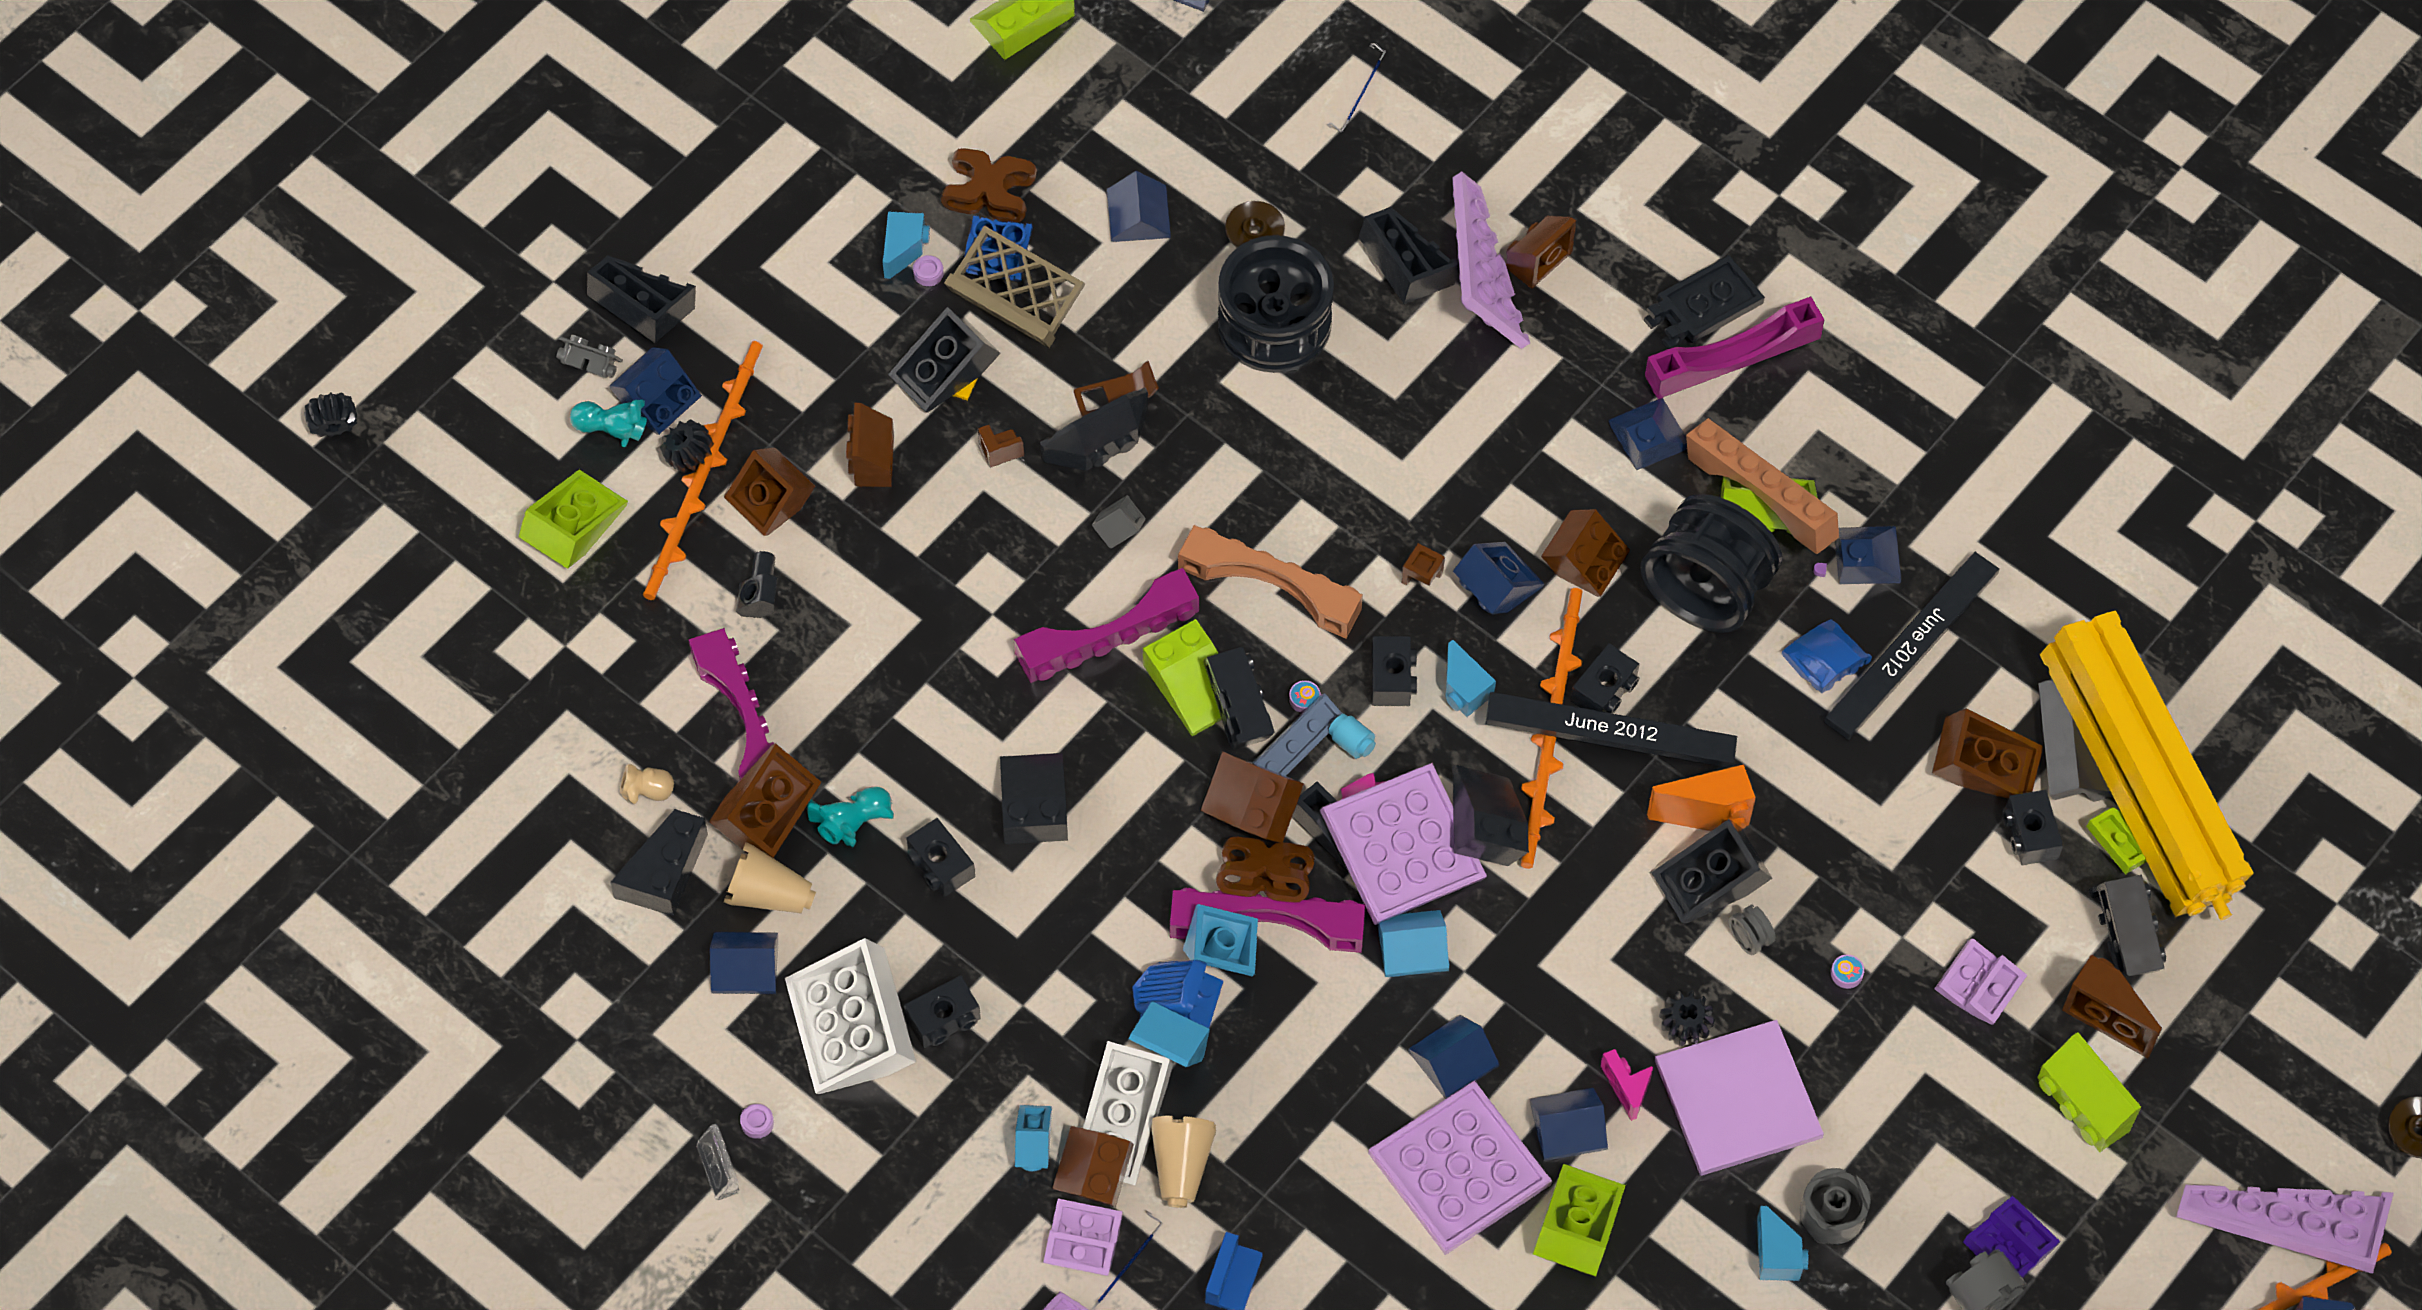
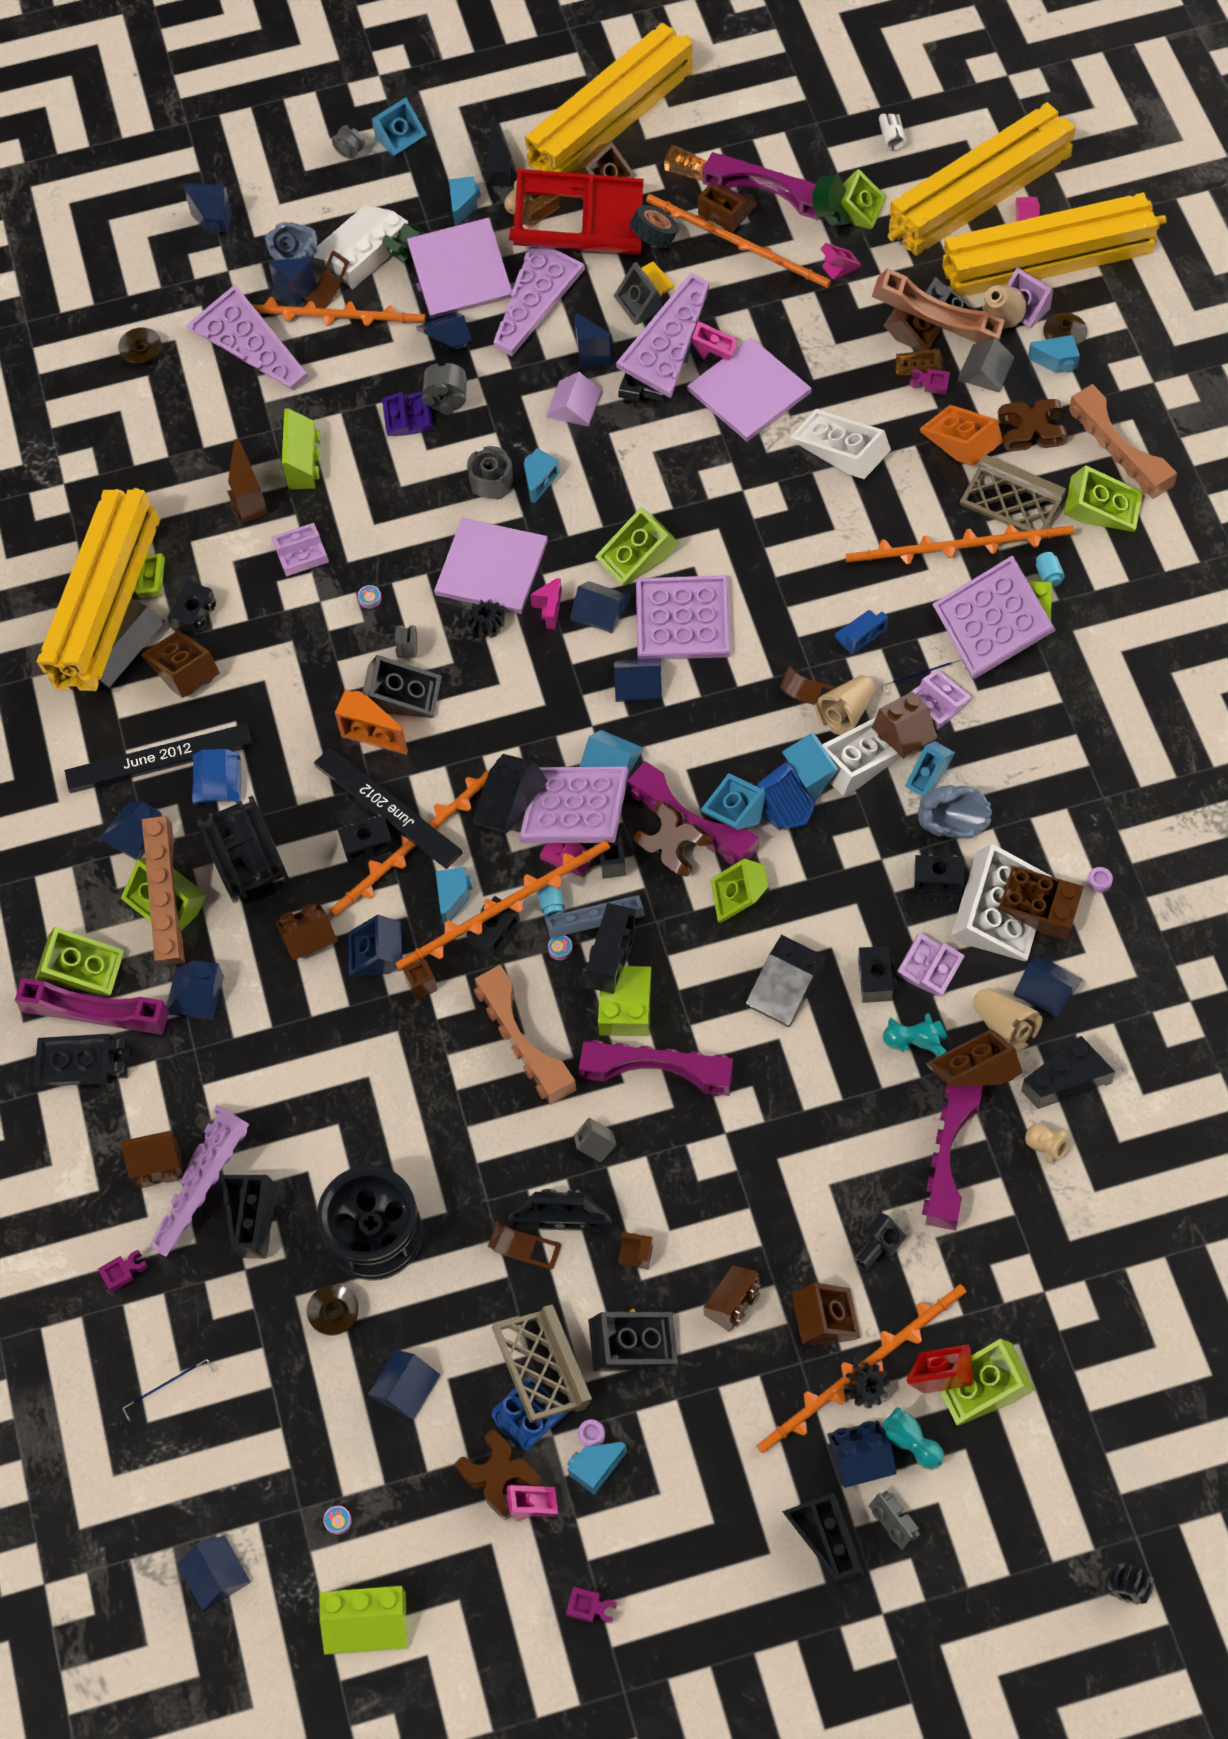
camera: 140 degrees left, 0 degrees up
(620, 494) = (942, 1369): none -> red slope
(717, 1163) = (1142, 864): slope -> none
(804, 1039) = (1041, 901): none -> reddish brown slope
(829, 131) = (586, 1604): none -> magenta plate
(889, 908) = (929, 965): none -> lavender slope
(943, 169) = (531, 1501): none -> dark pink slope
(970, 1084) = (954, 811): none -> sand blue hair
(1110, 74) = (337, 1520): none -> tile
(1152, 864) = (738, 888): none -> lime slope
(1249, 1161) = (802, 688): none -> reddish brown piece
(1252, 797) = (650, 882): reddish brown slope -> none
(1380, 690) = (492, 908): none -> orange plant
(1487, 146) = (118, 1272): none -> magenta plate
(1791, 385) = (79, 963): none -> lime slope
(2130, 925) = (190, 524): black wedge -> none

